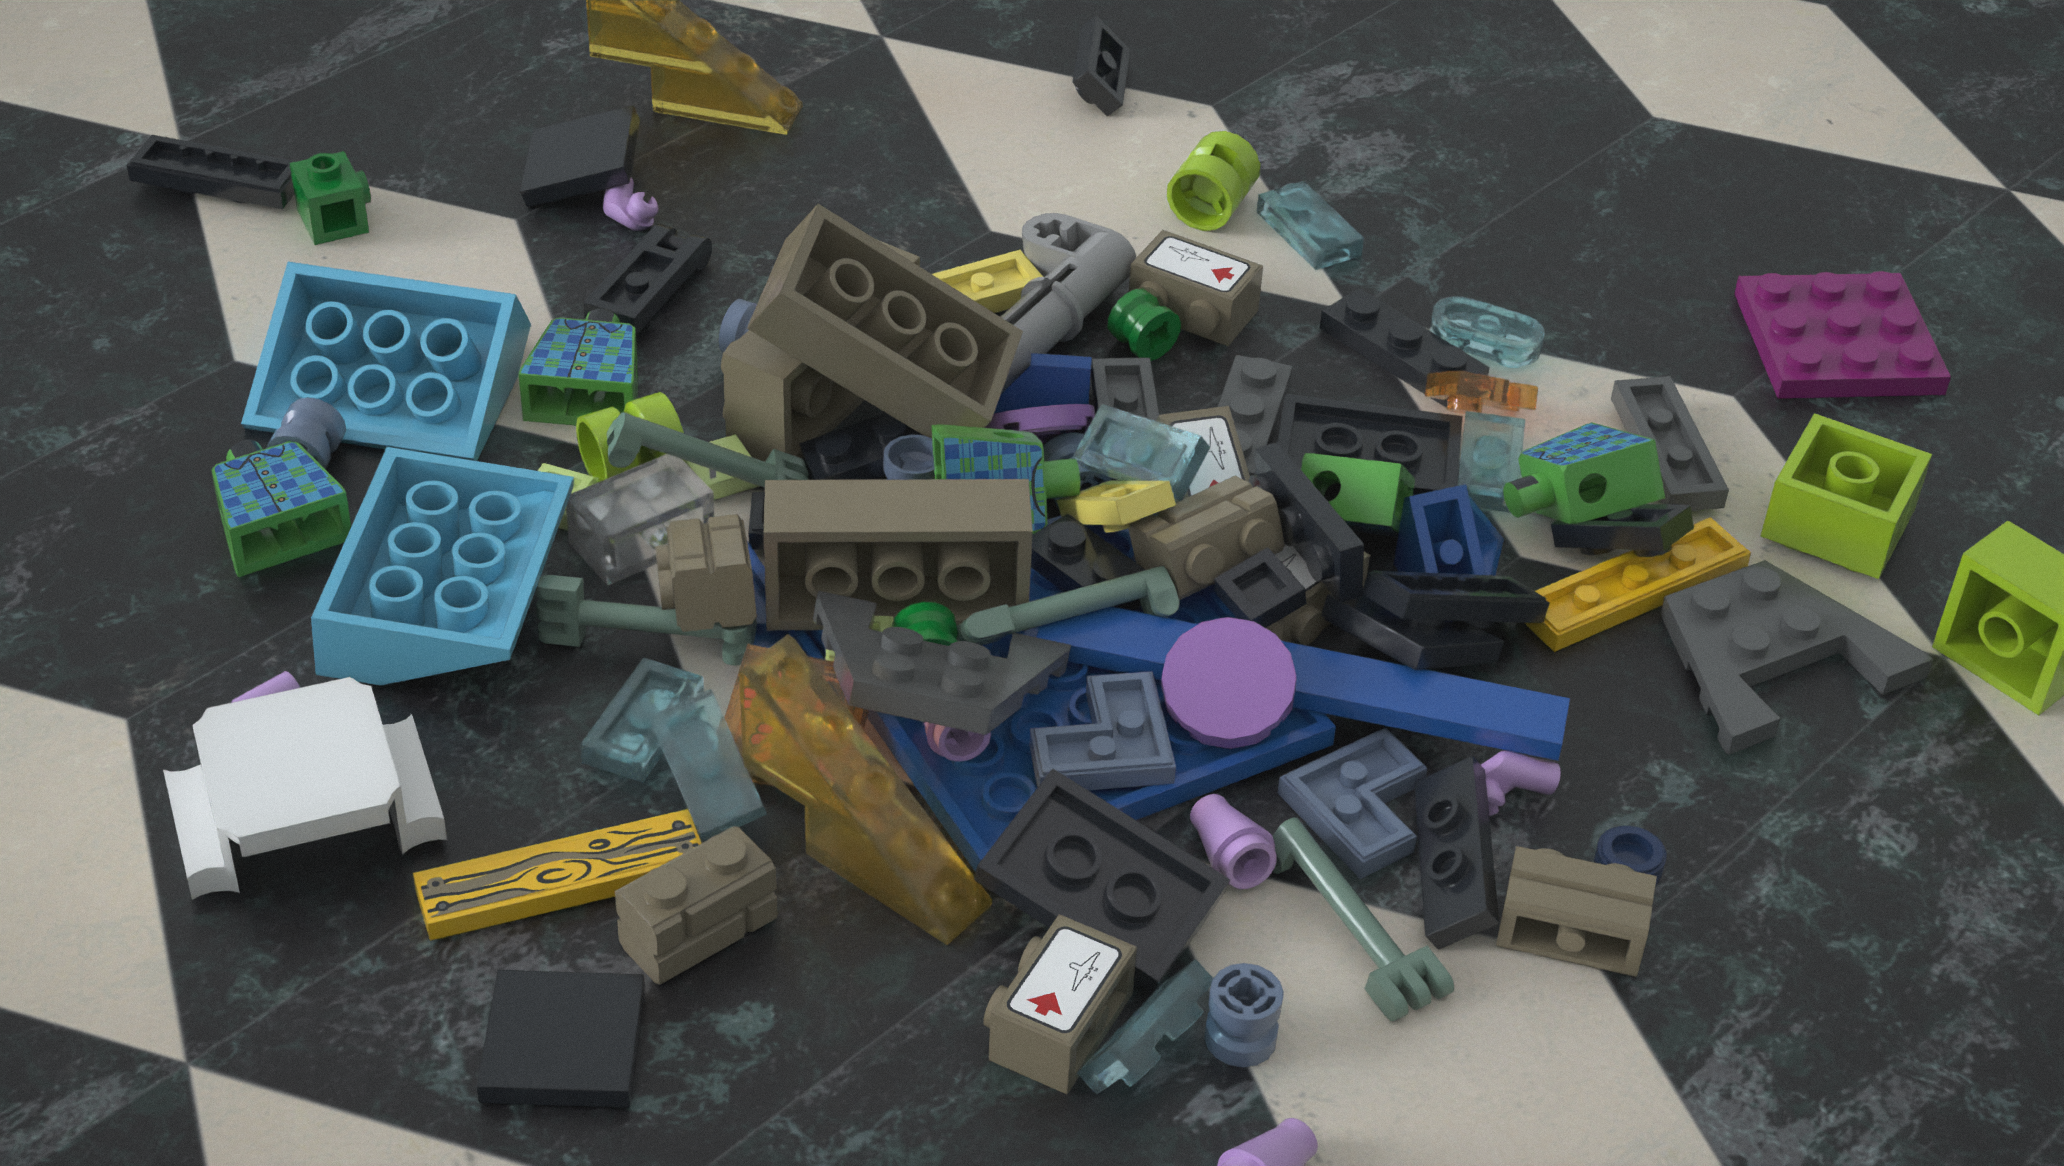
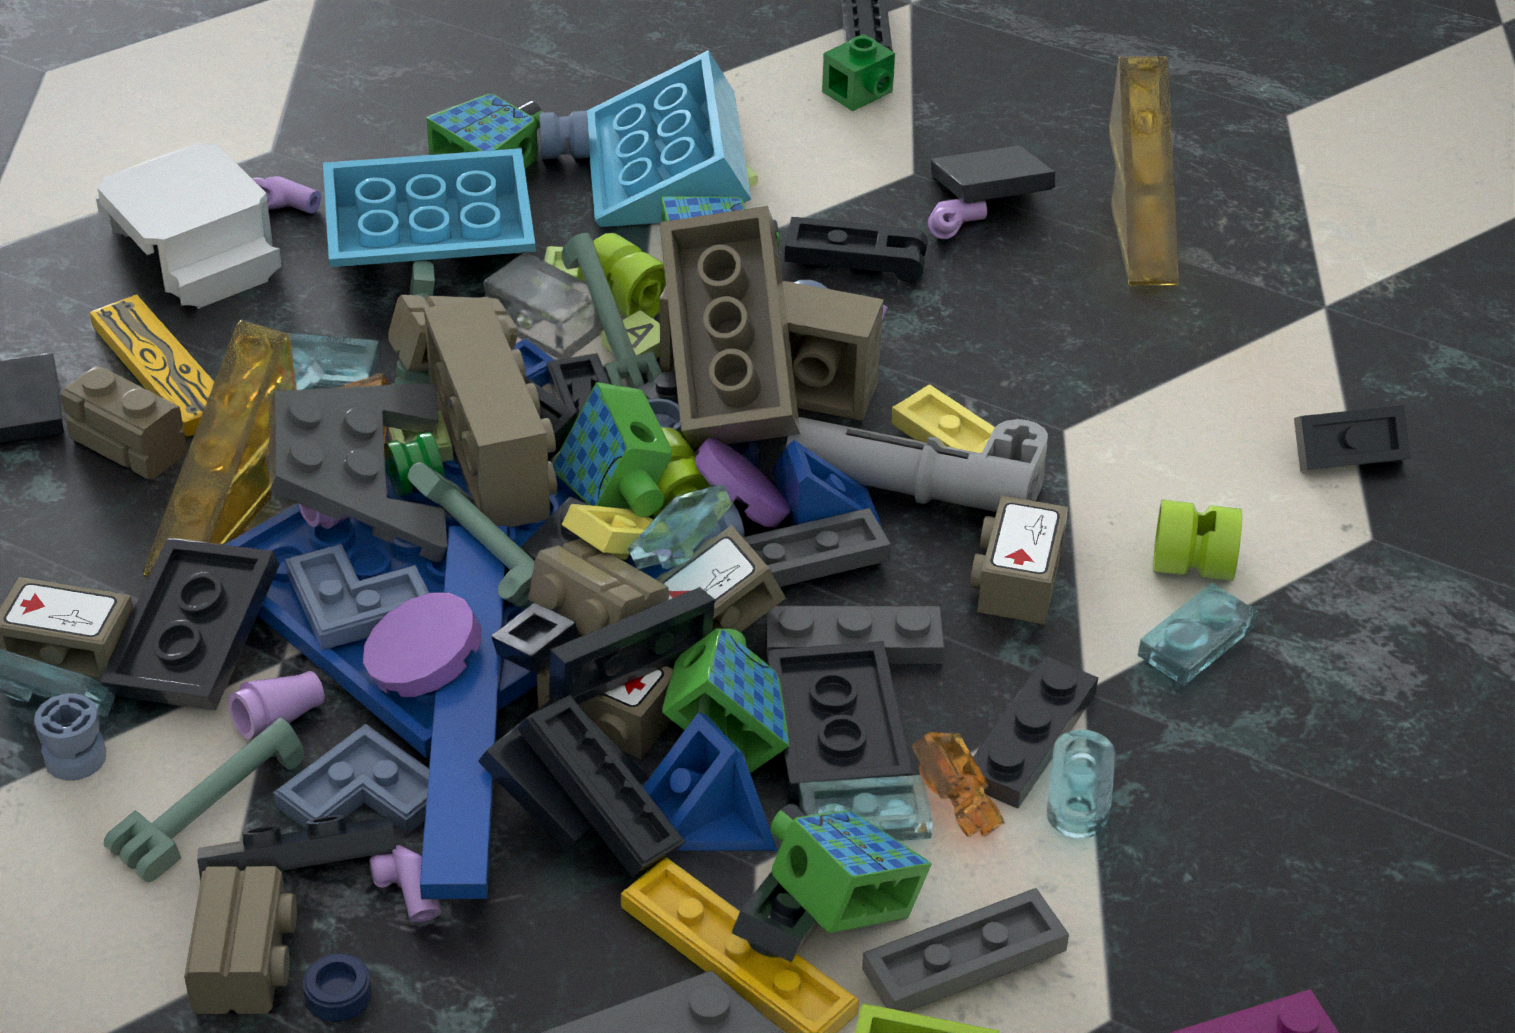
camera: 75 degrees right, 0 degrees up
(1144, 324) = (945, 535): green wheel -> none

